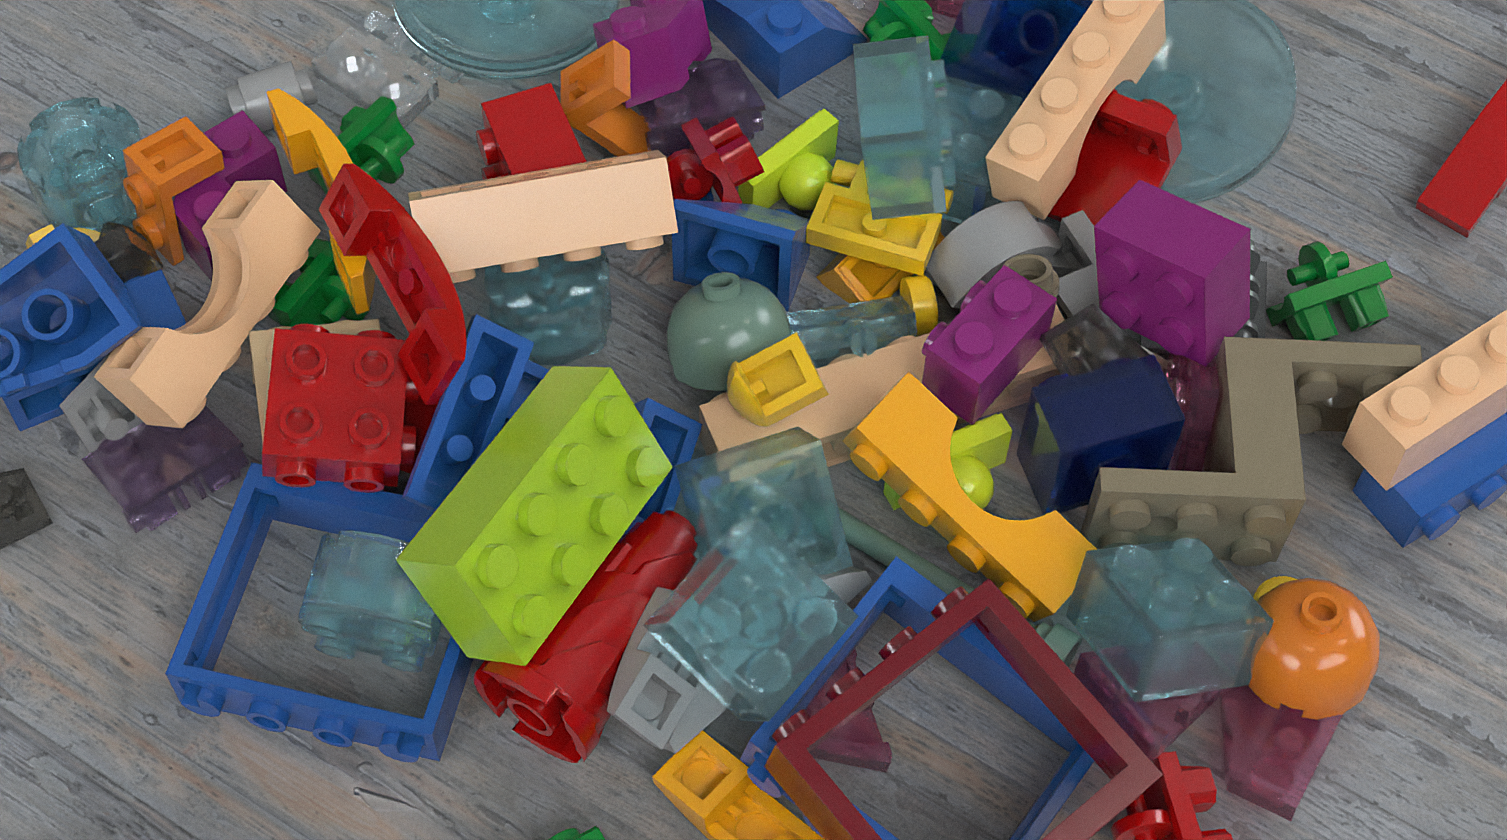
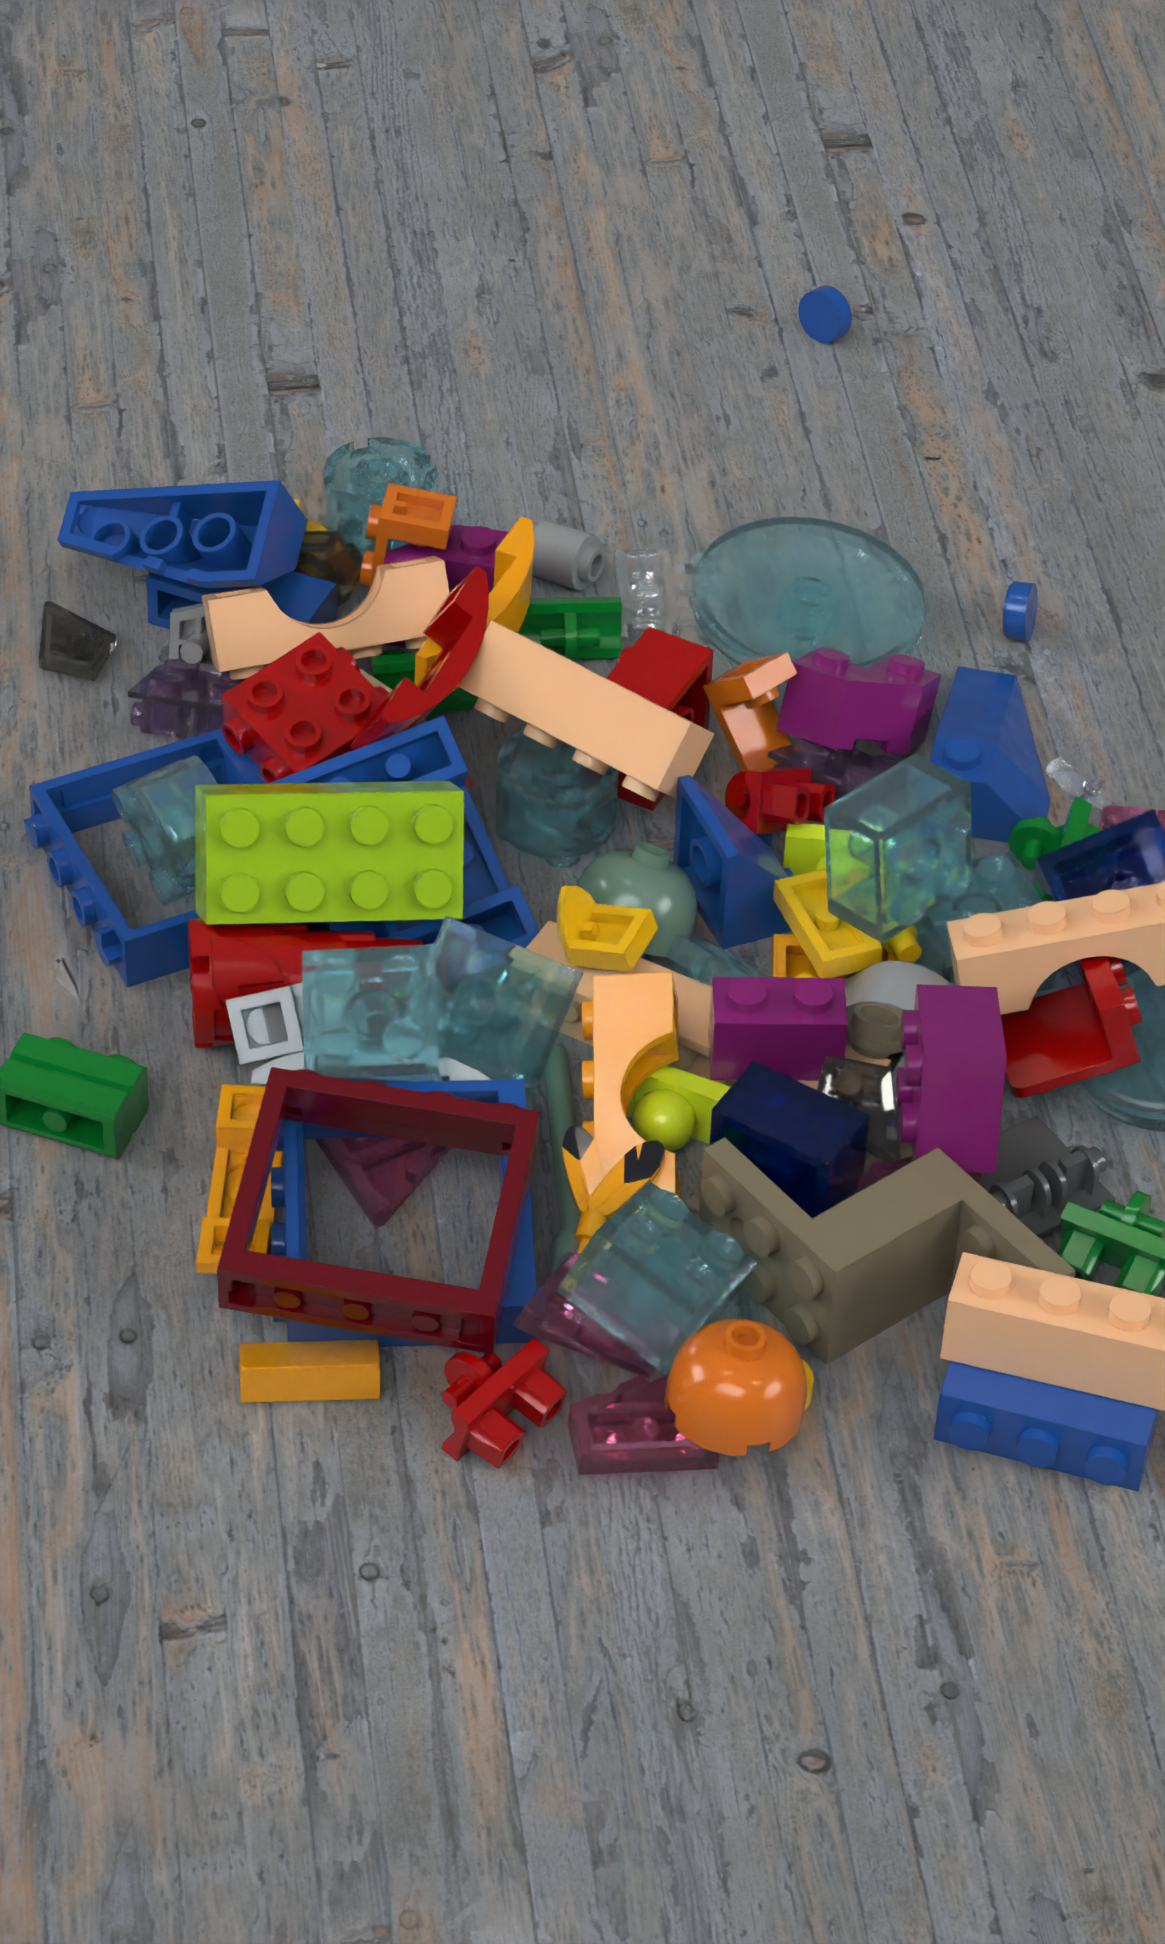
camera: 50 degrees right, 15 degrees down
(1049, 590) = (601, 1195): none -> light orange piece

